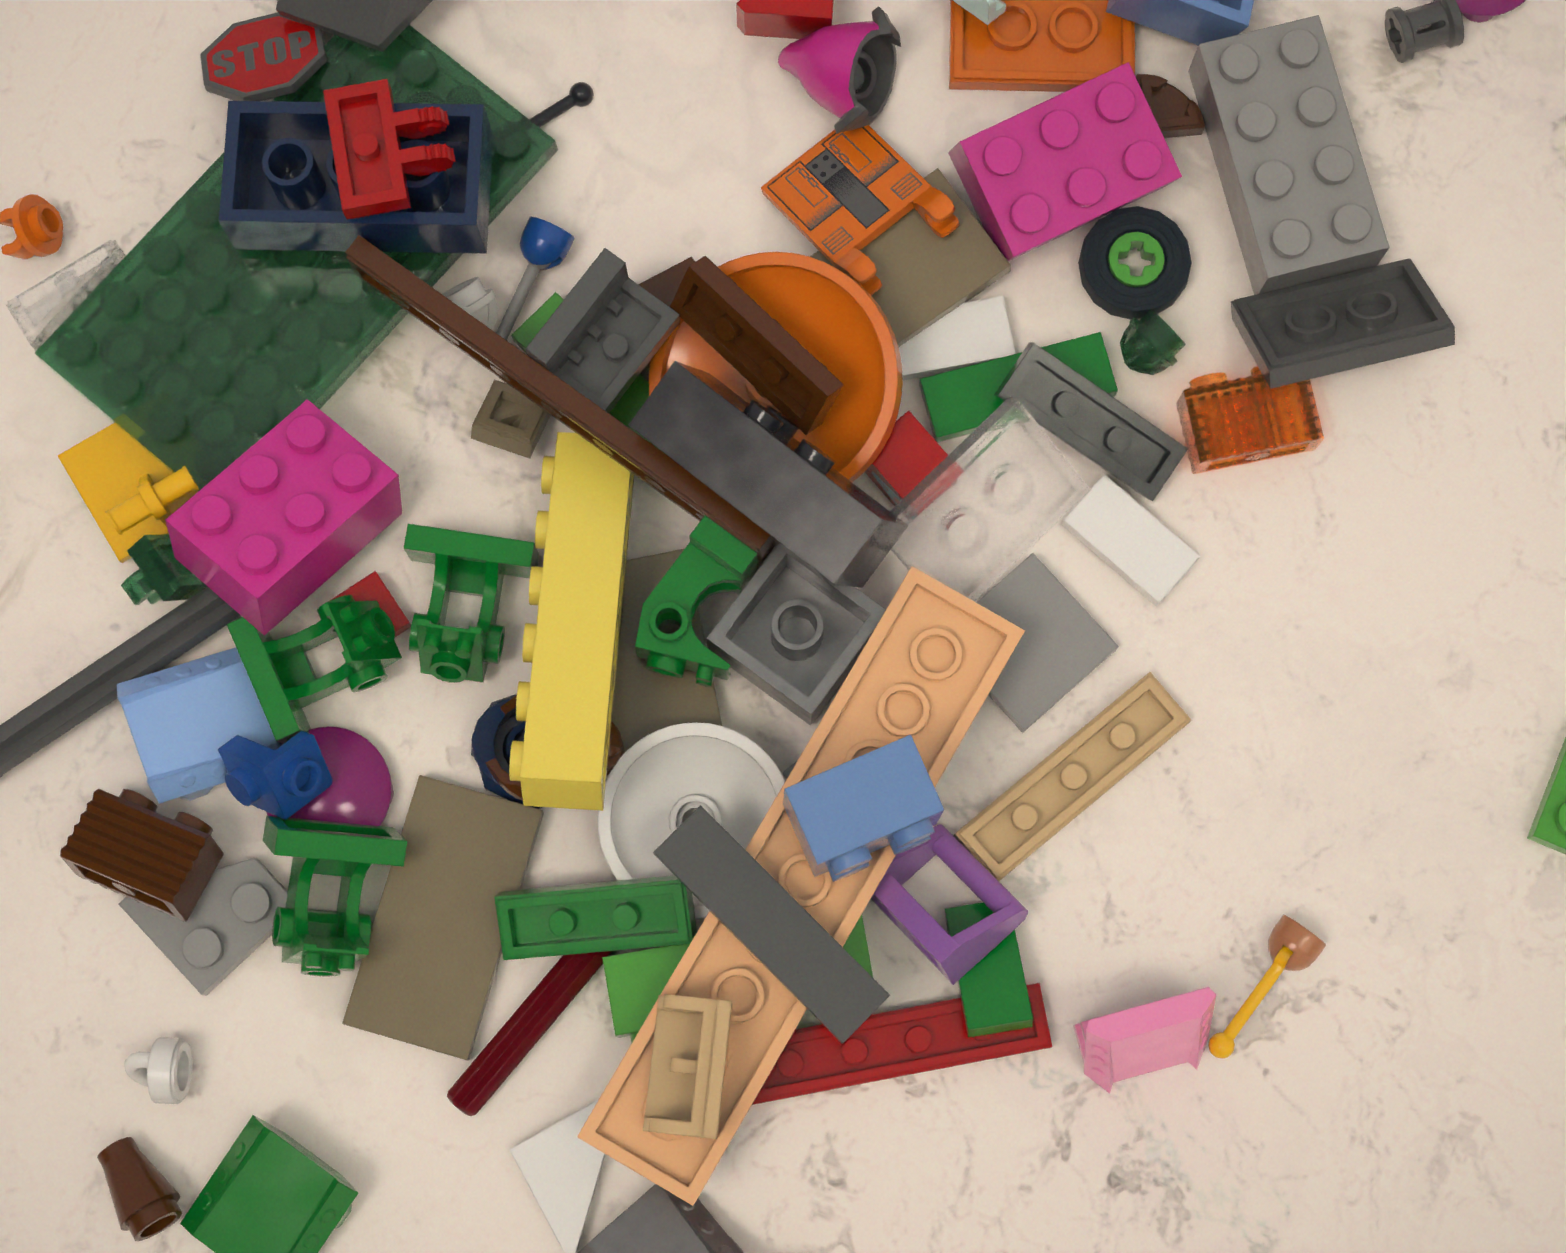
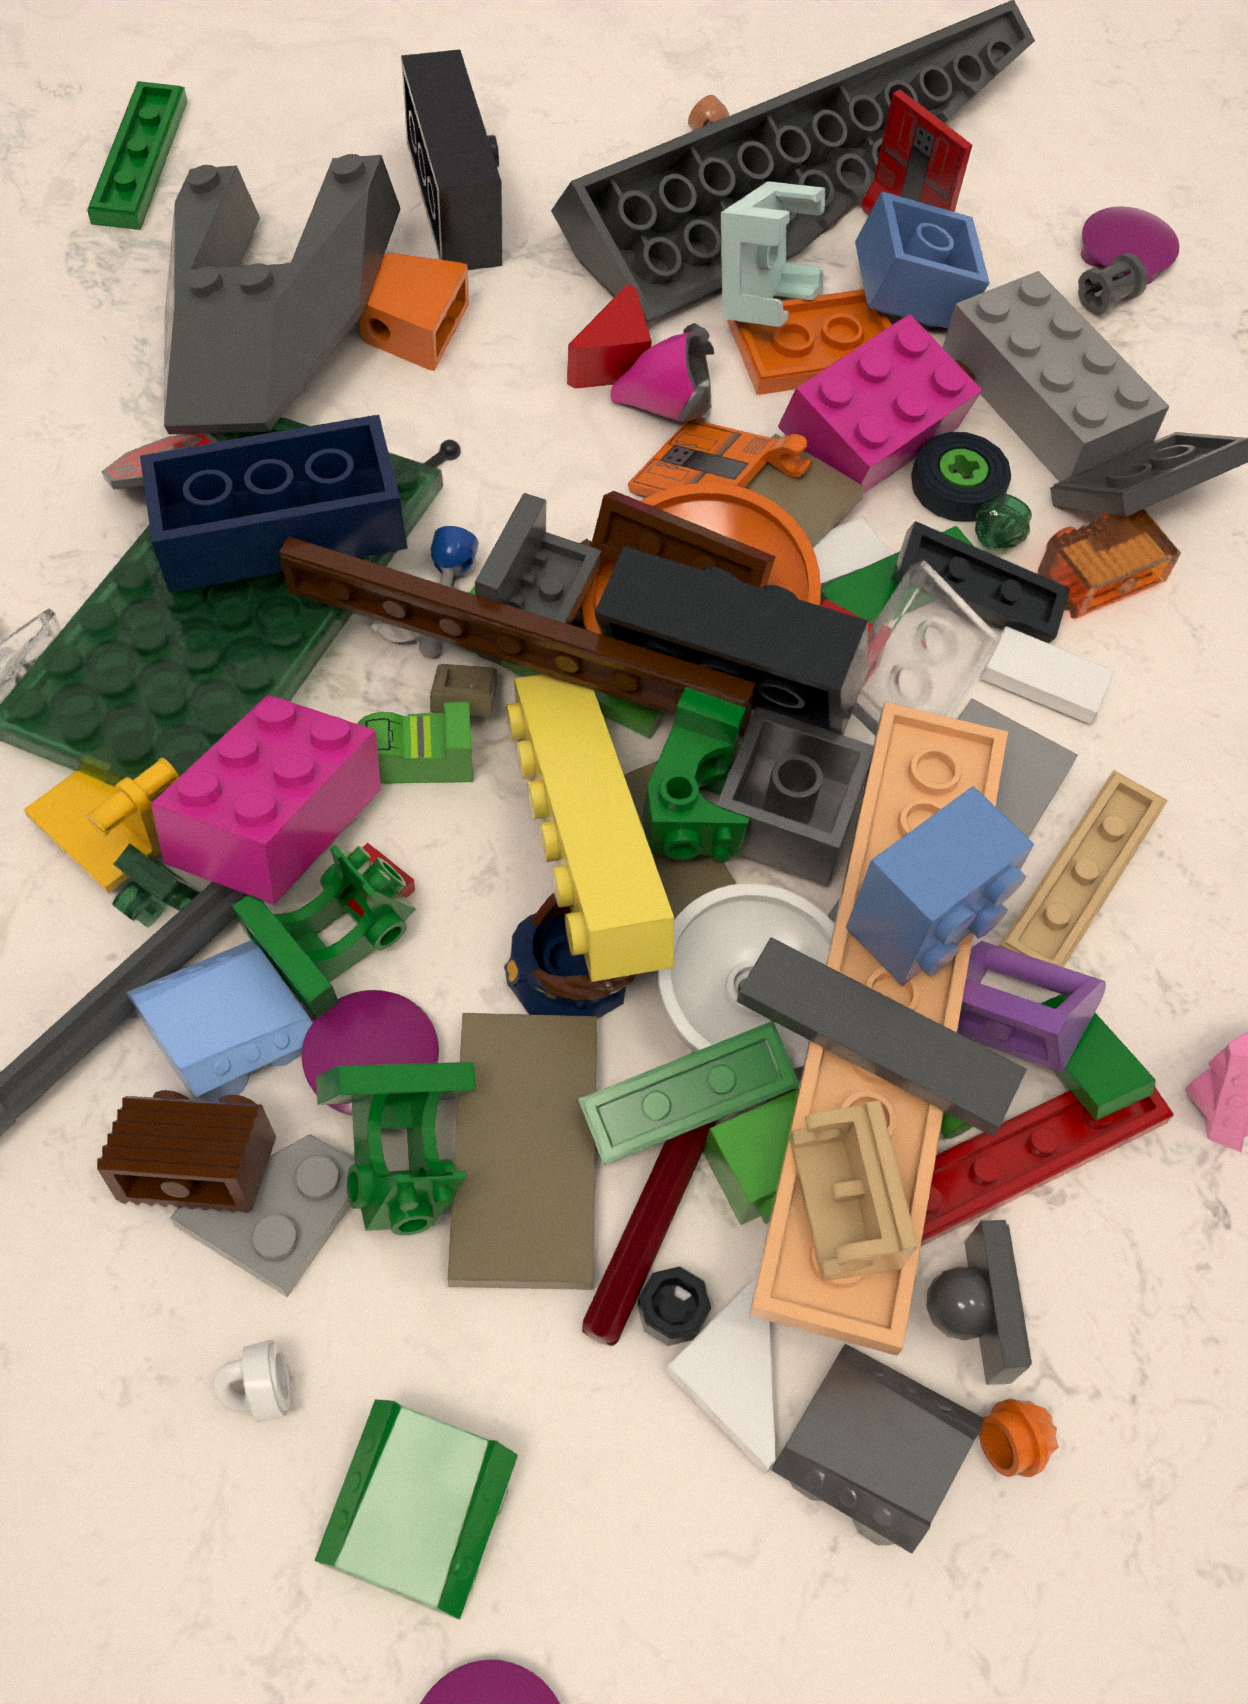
camera: 20 degrees left, 20 degrees down
(139, 1192) = (259, 1531): reddish brown cone -> none
(275, 779) = (315, 1034): blue bracket -> none
(369, 149) = (295, 452): red hinge -> none
(451, 475) = (424, 745): none -> bright green leg
(465, 566) = (461, 819): green tile -> none
(530, 1098) = (673, 1306): none -> black tile
(789, 1169) = (985, 1303): none -> dark grey tile

